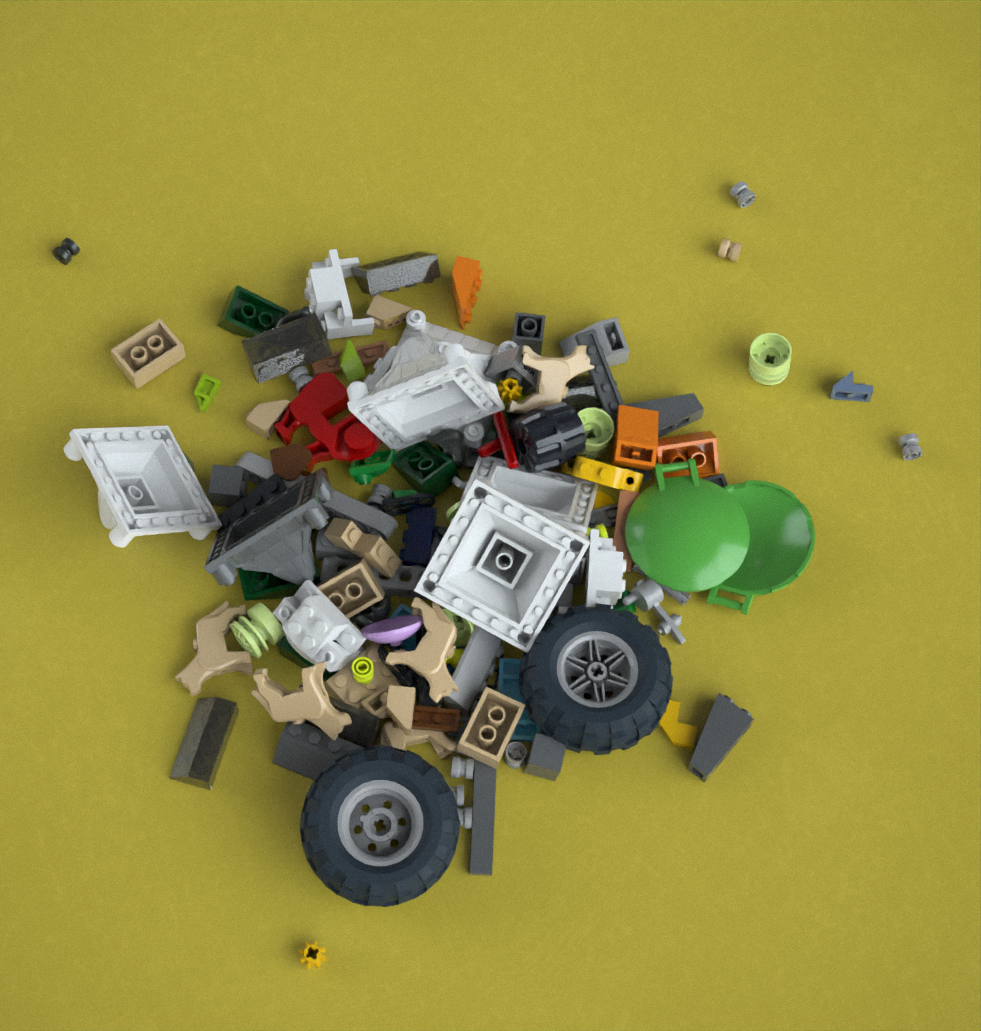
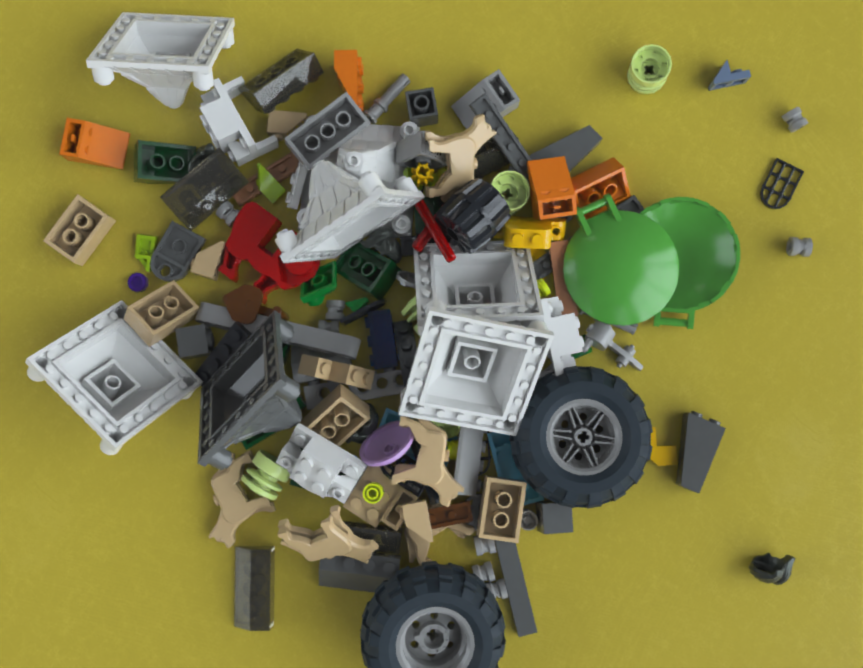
camera: 10 degrees left, 20 degrees up
(187, 419) = (138, 282): none -> dark purple tile
(190, 281) = (94, 144): none -> orange slope
(202, 445) = (161, 313): none -> tan brick
(235, 401) = (176, 251): none -> dark grey plate
(290, 216) = (162, 52): none -> white piece
(427, 321) = (327, 131): none -> light grey slope
(488, 321) = (381, 104): none -> light grey pin
(766, 880) = (772, 569): none -> pearl dark grey hair
(880, 498) = (787, 181): none -> black window
(882, 567) = (799, 246): none -> light grey wheel

